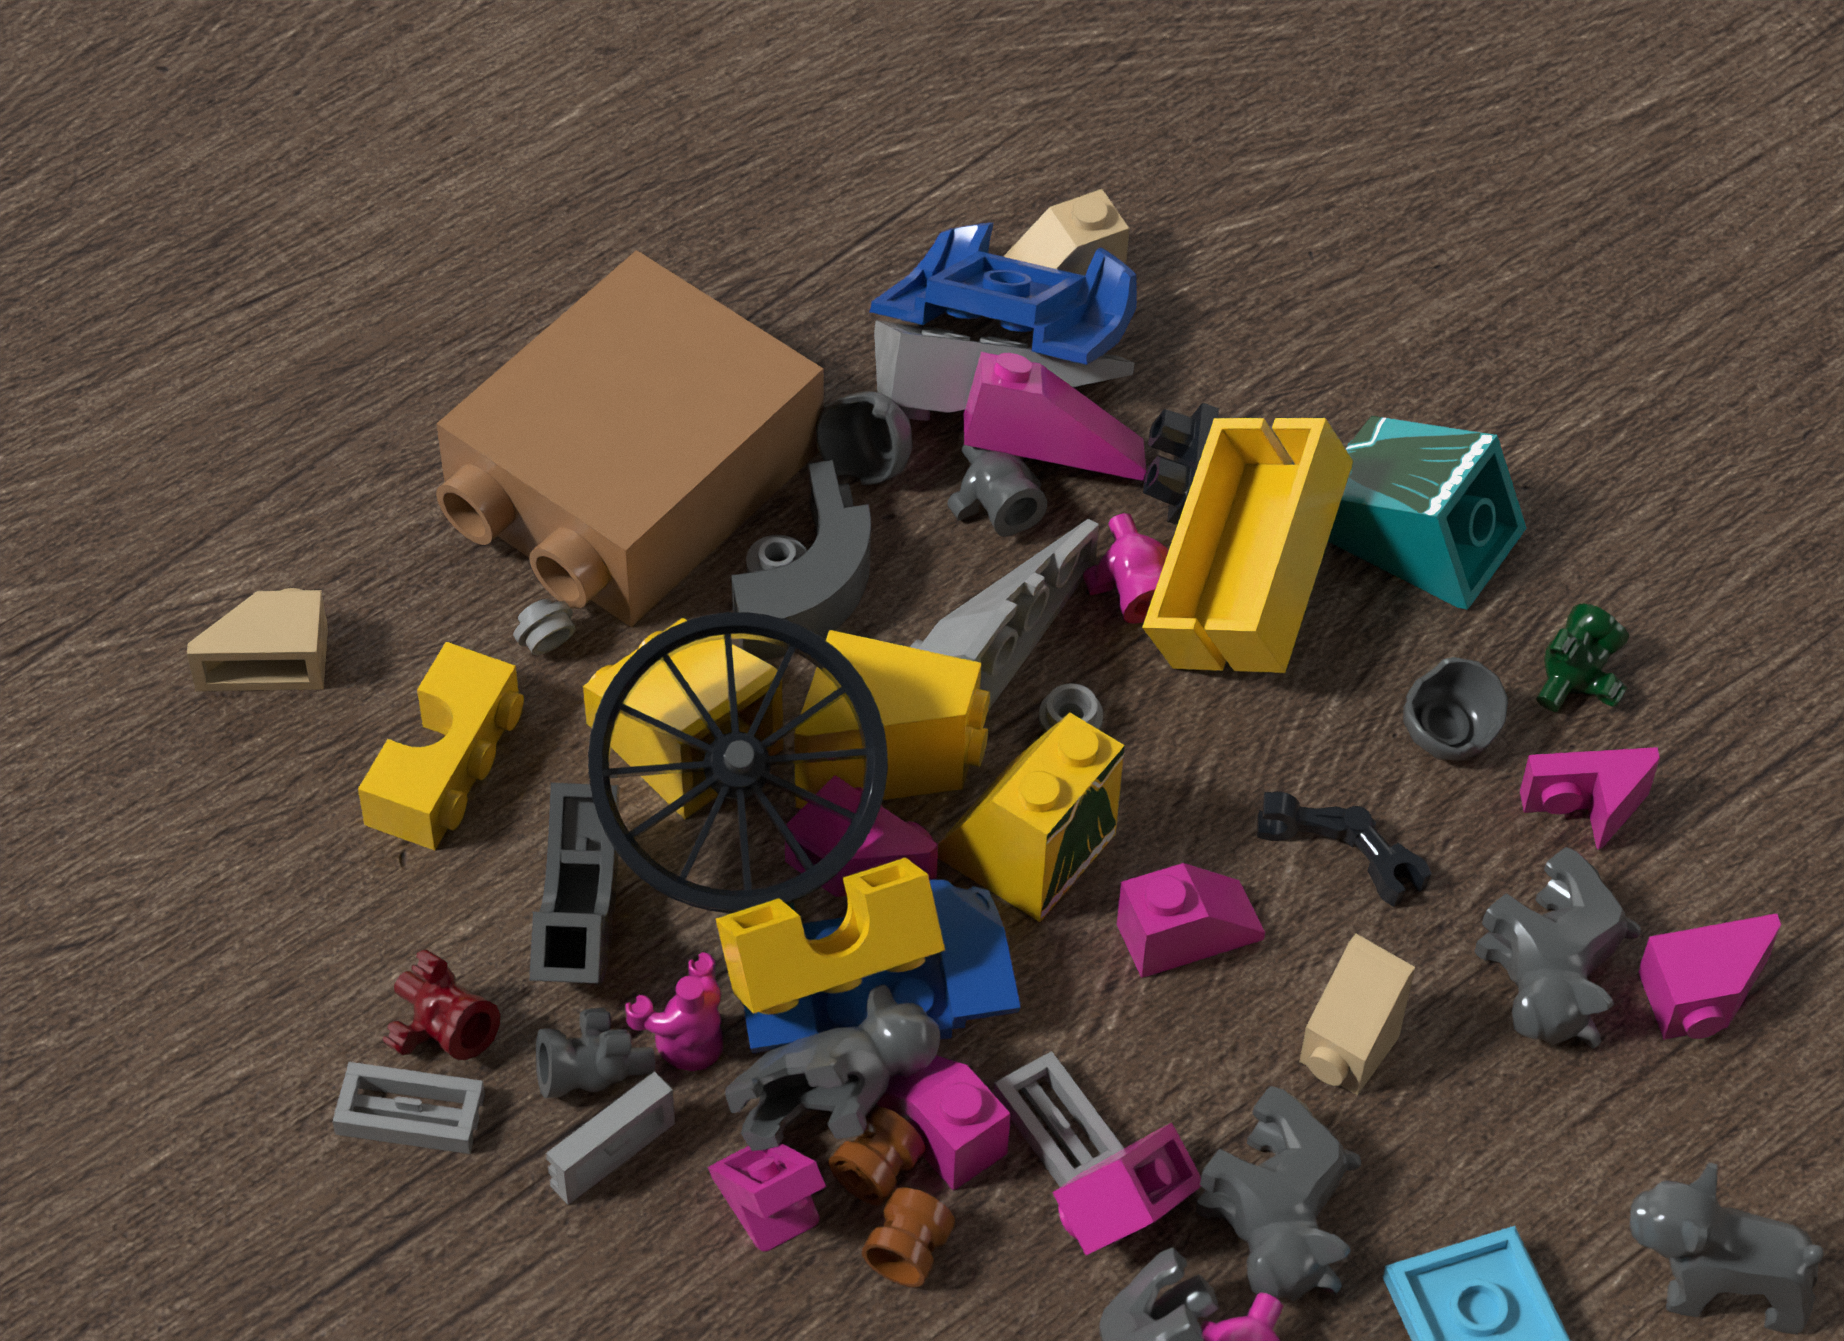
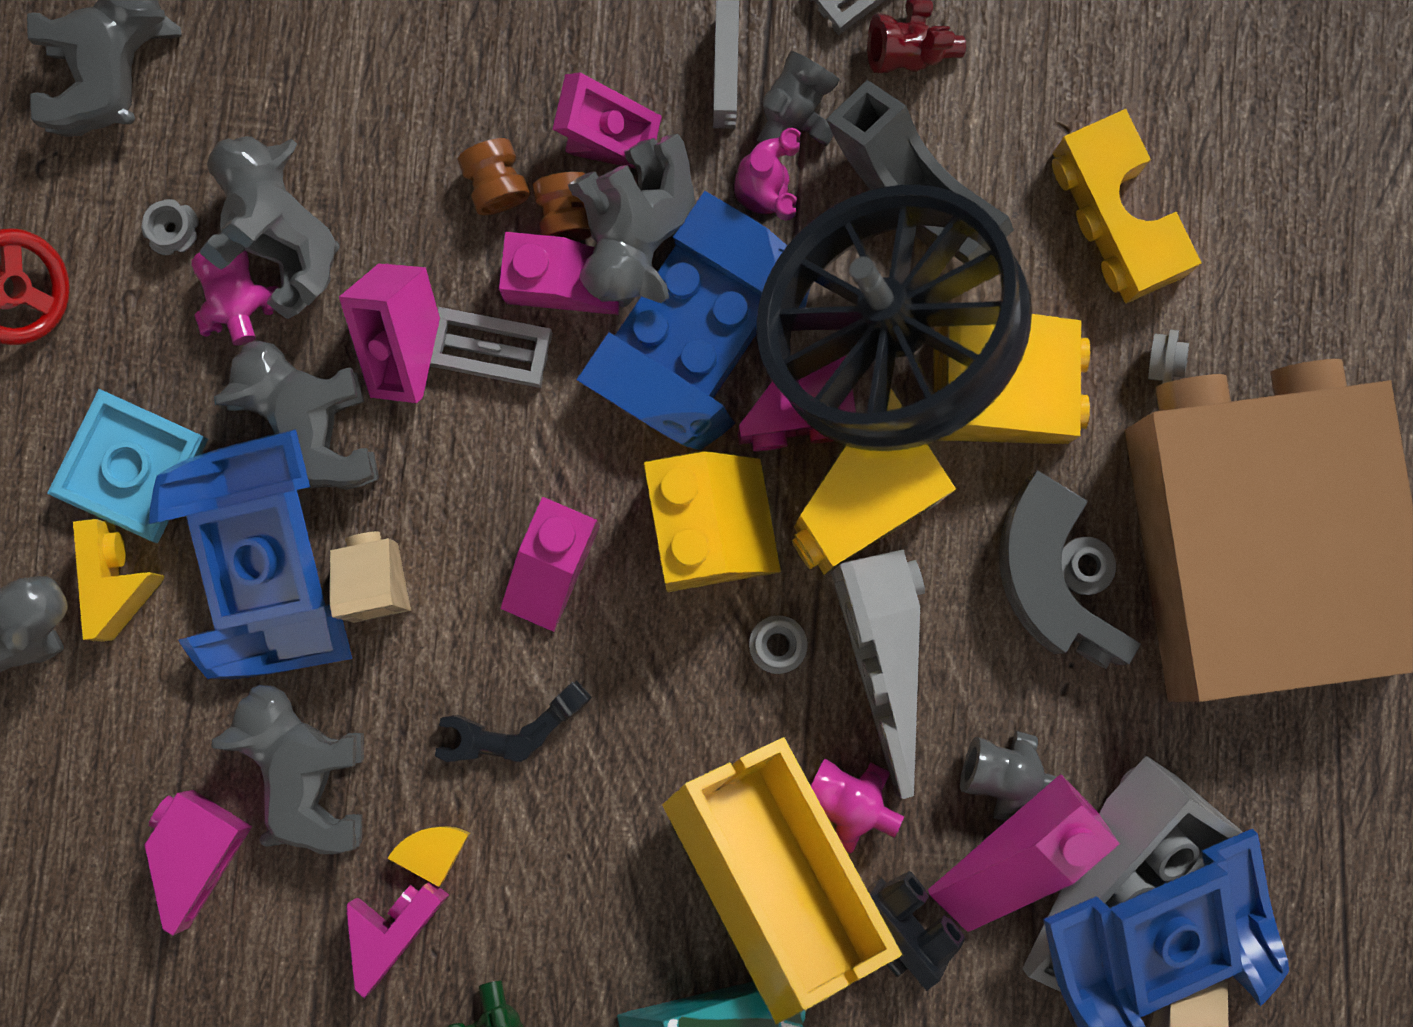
camera: 130 degrees right, 30 degrees up
(264, 645) = (1315, 168): tan slope -> none
(865, 437) = (1138, 720): dark grey hair -> none
(886, 927) = (728, 236): yellow arch -> none
(1431, 1128) = (252, 559): none -> blue piece
(1455, 709) = (531, 899): dark grey hair -> none
(1504, 820) = (430, 852): none -> yellow tile
(1587, 1223) = (104, 596): none -> yellow slope

